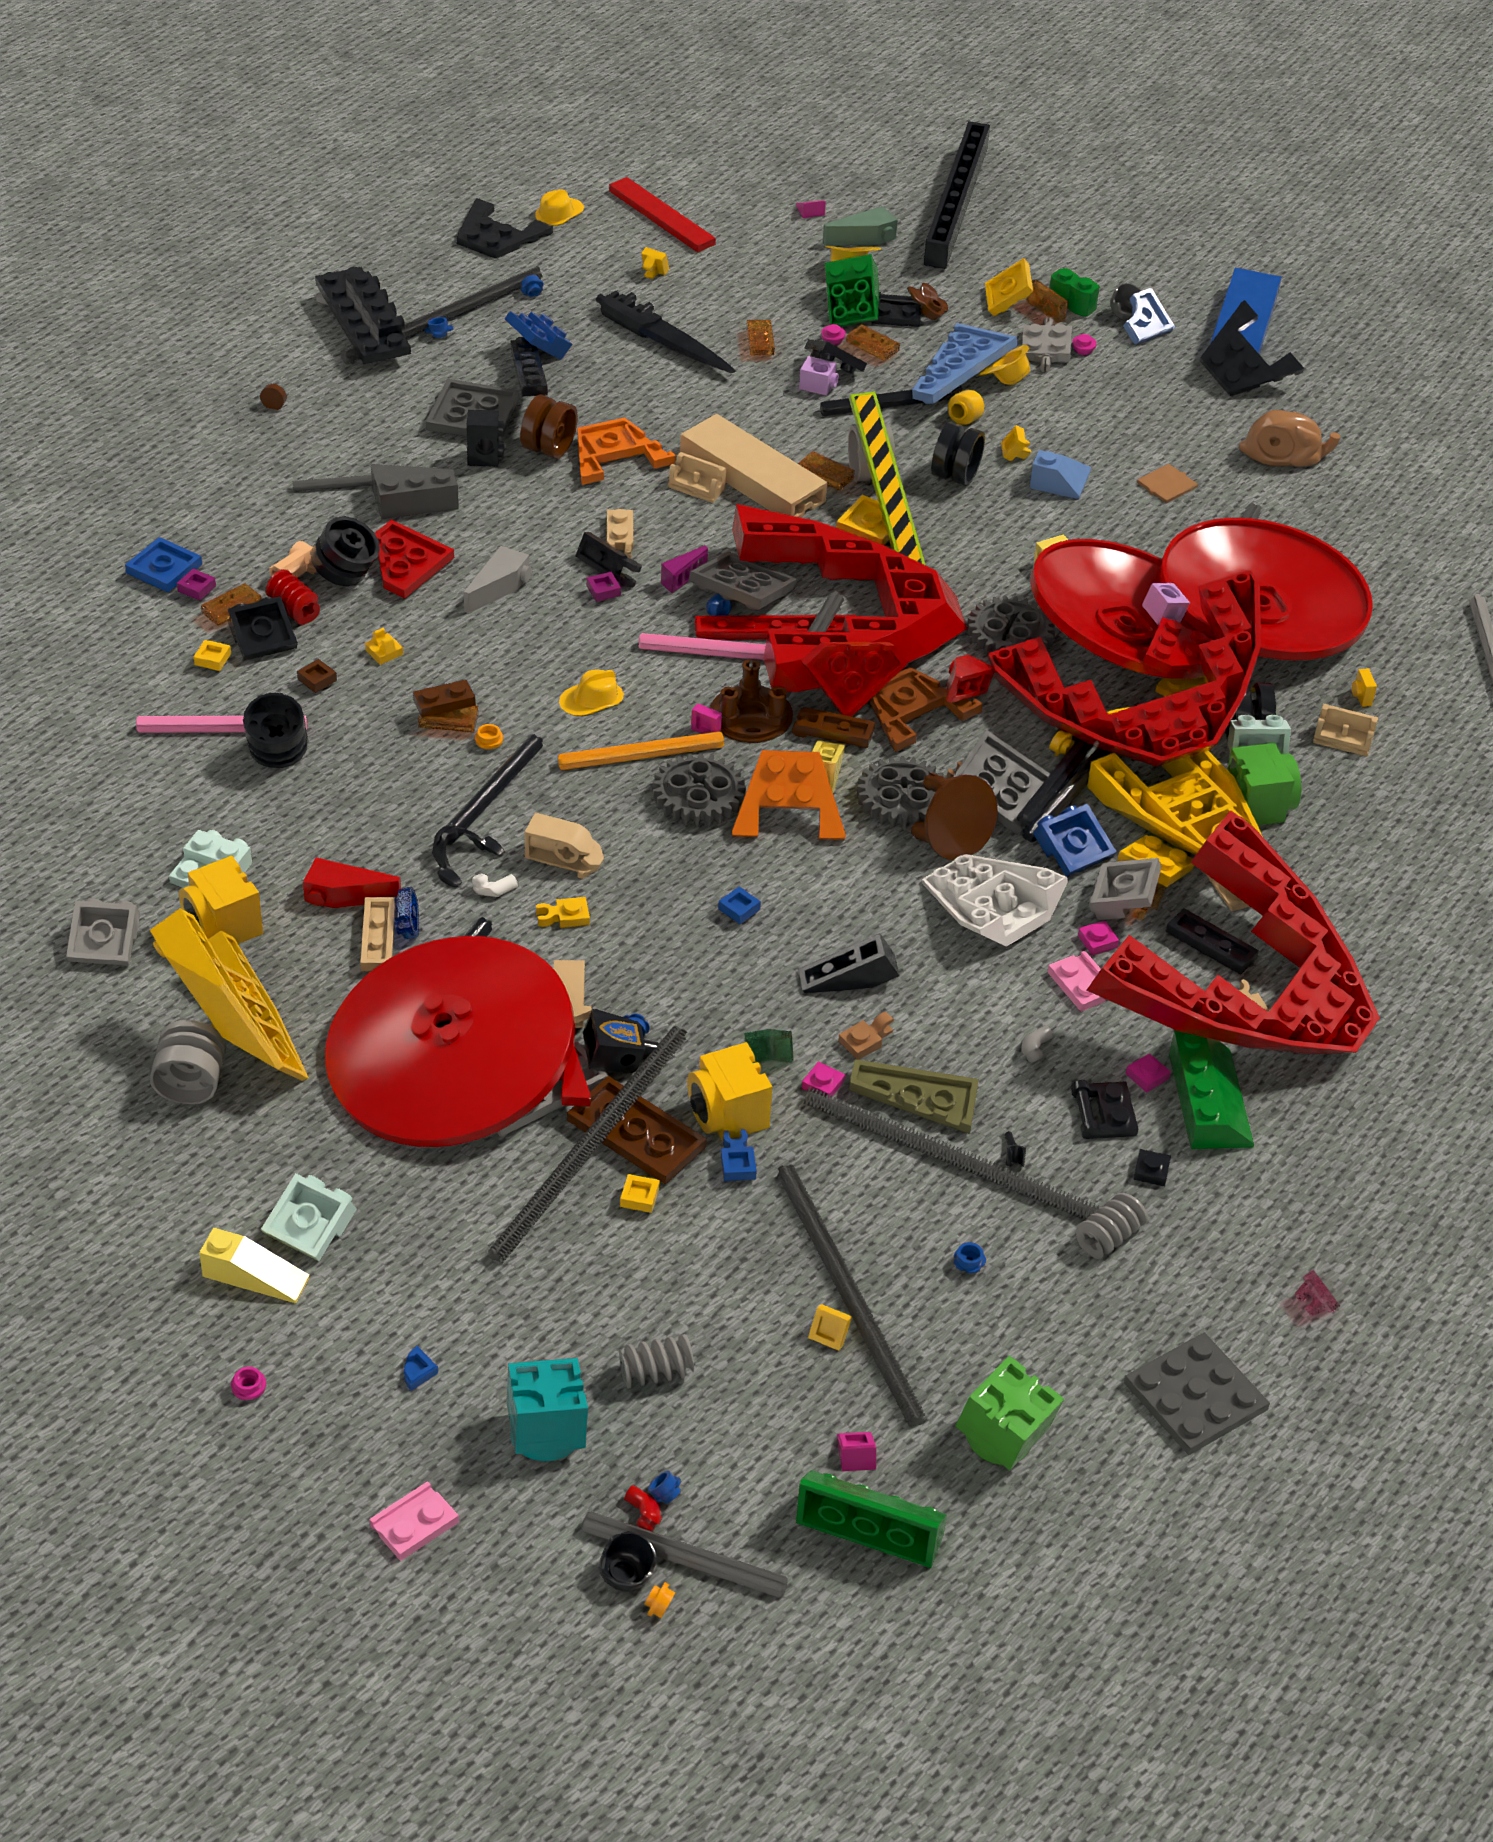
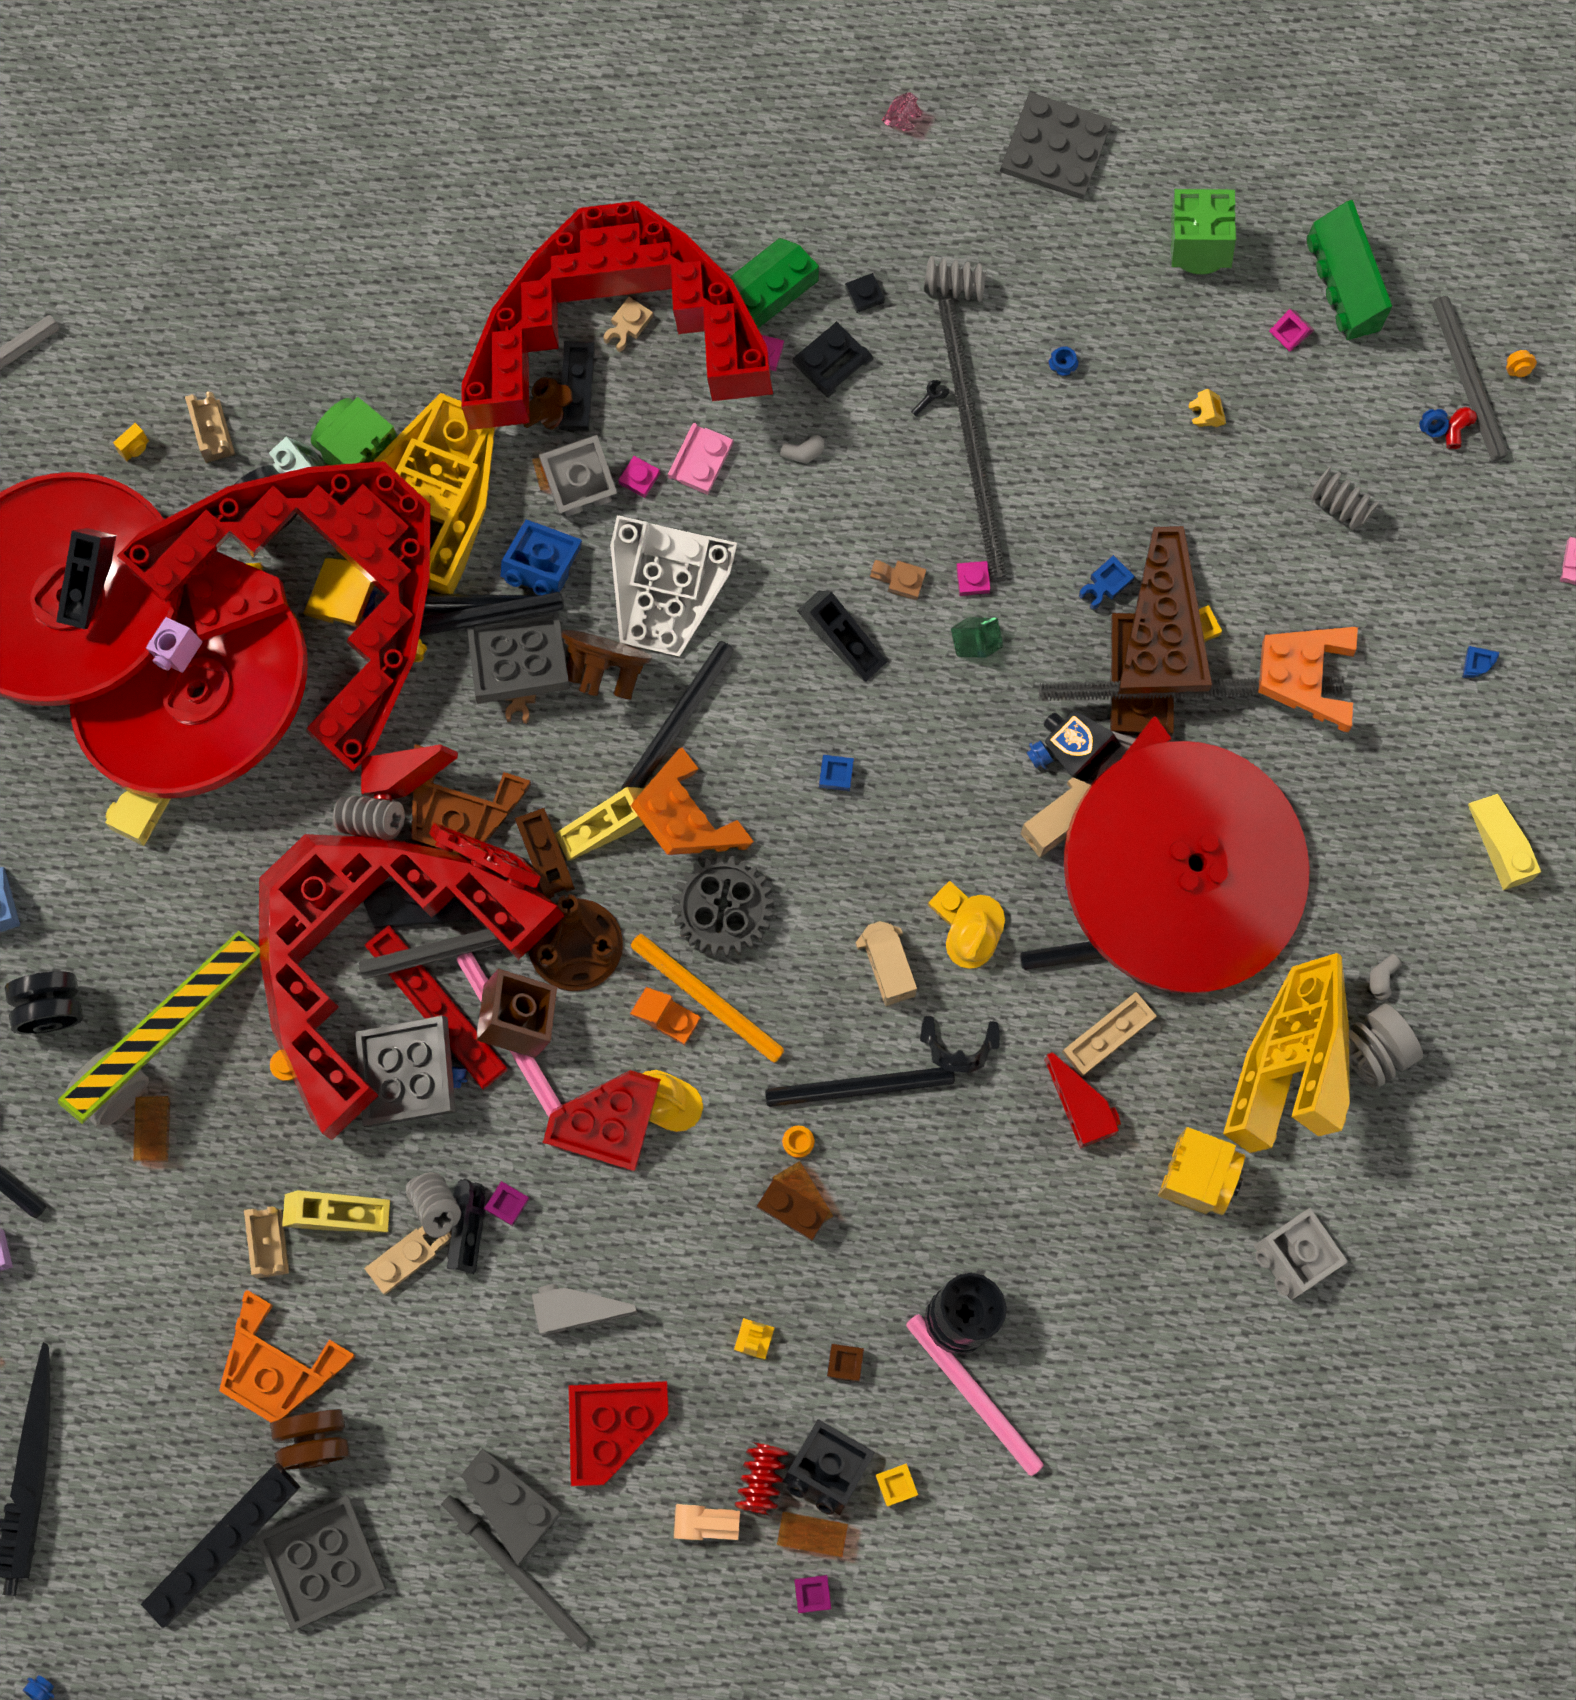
camera: 125 degrees left, 30 degrees up
(163, 564) = (810, 1654): blue plate -> none
(206, 849) = (1148, 1241): light aqua plate -> none
(242, 1121) = (1381, 977): none -> light grey arm
(309, 1216) = (1427, 838): light aqua plate -> none
(345, 551) = (670, 1472): black wheel -> none
(408, 913) = (1079, 1019): clear blue plate -> none
(483, 438) = (378, 1491): black brick -> none
(493, 889) = (977, 988): white arm -> none
(534, 906) = (975, 931): none -> yellow piece
(536, 1215) = (1294, 671): none -> orange wing
(541, 333) = (141, 1593): blue plate -> none
(546, 1408) = (1458, 526): teal piece -> none
(604, 649) = (607, 1120): none -> red plate
(627, 1561) = (1515, 400): black hair -> none
(639, 540) = (433, 1203): none -> light grey piece
(655, 723) = (665, 1015): none -> orange slope
(655, 1147) = (1166, 634): none -> reddish brown wing
(677, 570) = (432, 1148): magenta slope -> none
(684, 511) = (335, 1212): none -> light yellow slope
(705, 719) = (627, 965): dark pink plate -> none
(725, 636) = (516, 1013): none -> reddish brown brick
(730, 1092) = (1063, 618): yellow piece -> none
(755, 467) = (205, 1202): tan brick -> none
(851, 1296) = (1161, 424): dark grey axle -> none
(864, 520) = (210, 1034): yellow plate -> none
(872, 850) = (679, 716): none -> black axle
(896, 791) = (564, 751): dark grey gear -> none
(925, 1093) = (926, 490): olive wing -> none
(944, 647) = (368, 817): none -> light grey piece
(994, 620) = (282, 818): dark grey gear -> none
(1173, 861) = (515, 481): yellow plate -> none
(1213, 915) = (548, 402): none -> reddish brown plate
(1277, 587) = (85, 575): none -> black slope

